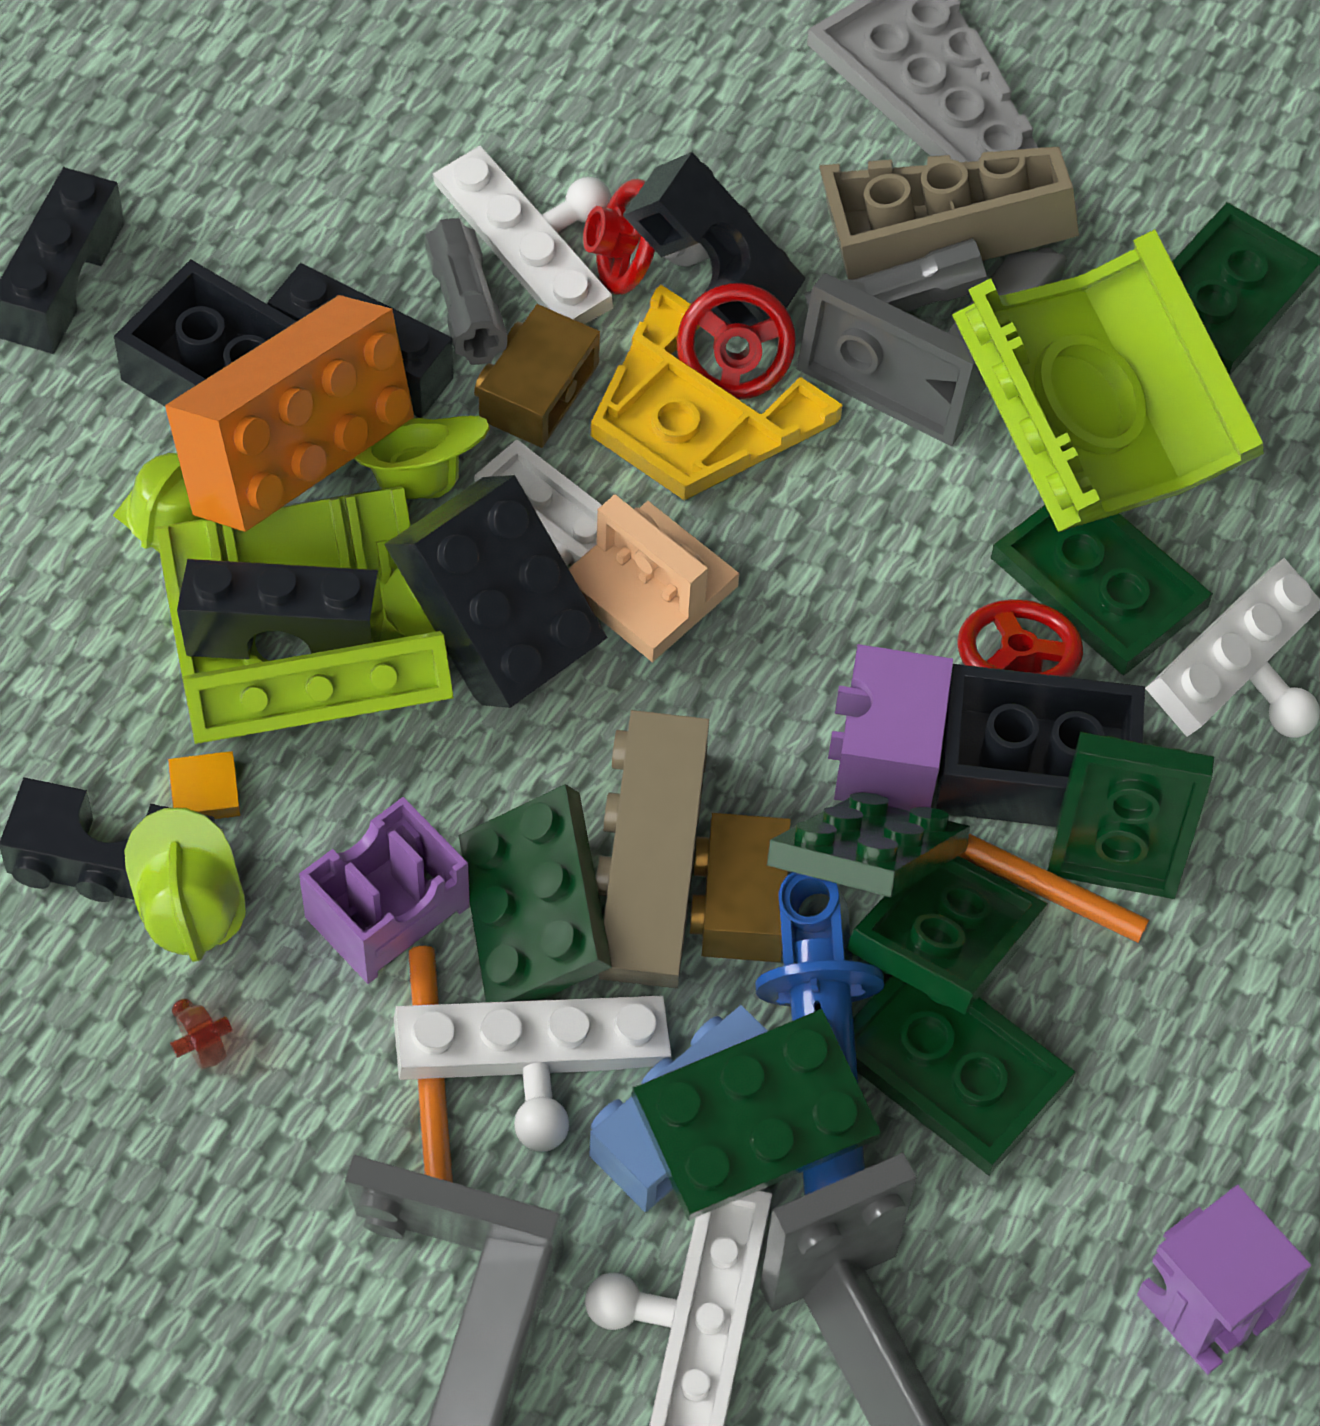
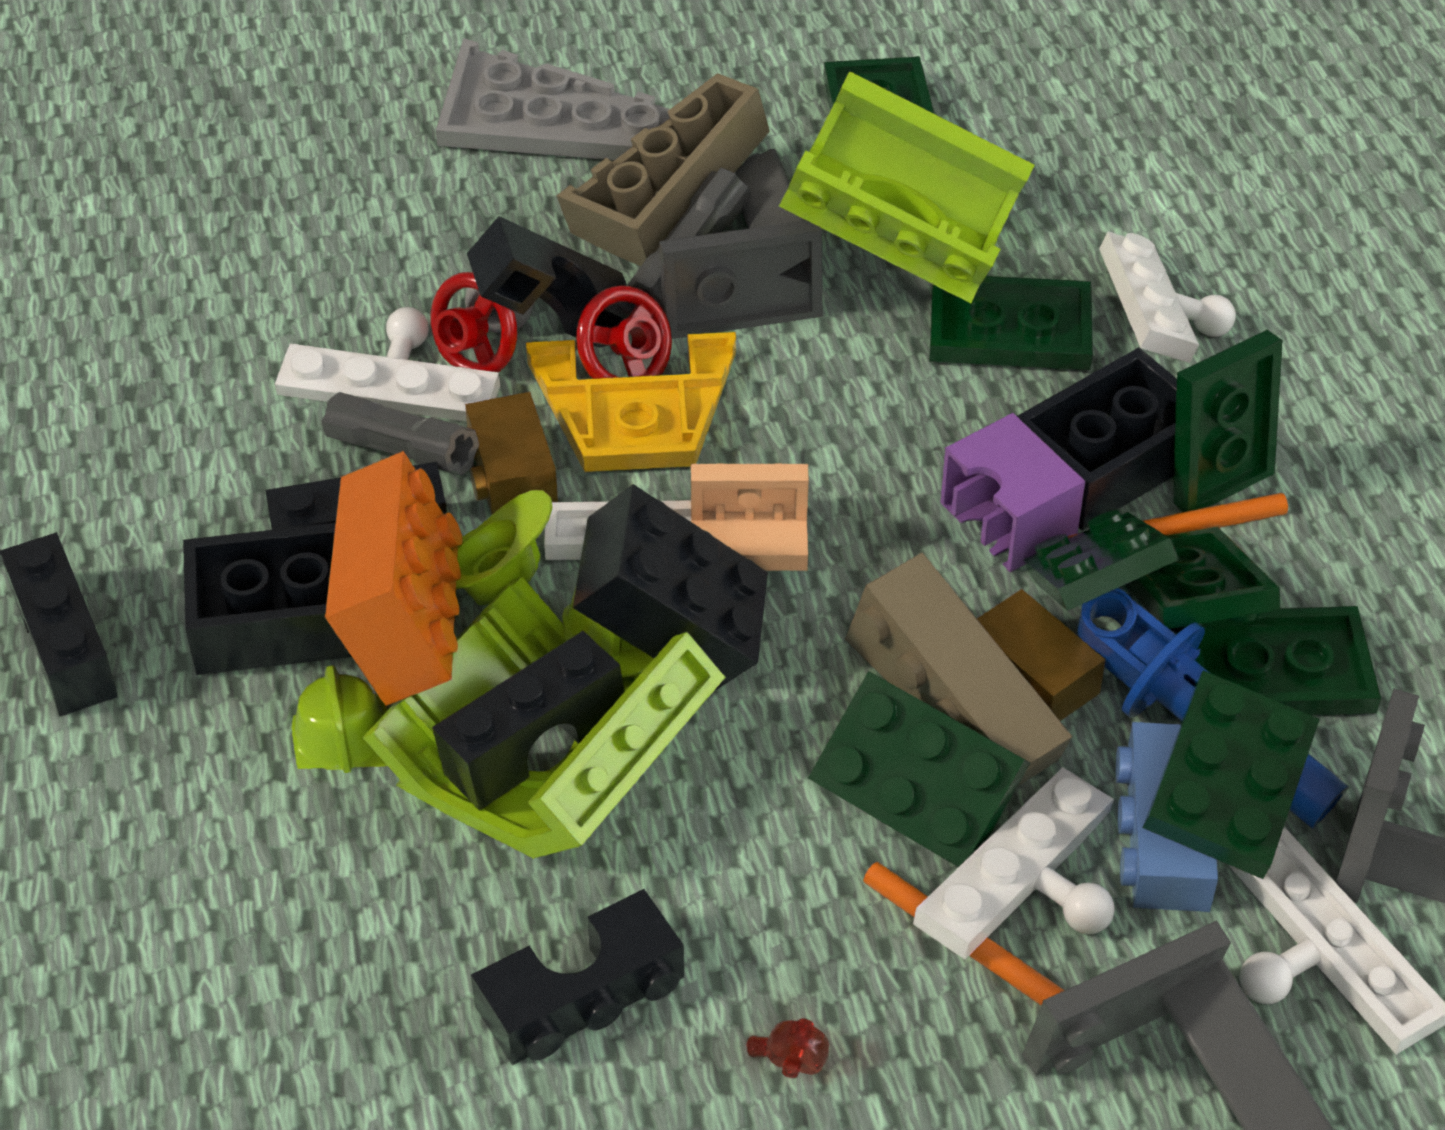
camera: 40 degrees left, 10 degrees down
(184, 881) = (680, 946): lime piece -> none
(205, 784) = (590, 886): light orange tile -> none
(375, 894) = (815, 843): medium lavender piece -> none
(1020, 648) = (1016, 393): red piece -> none

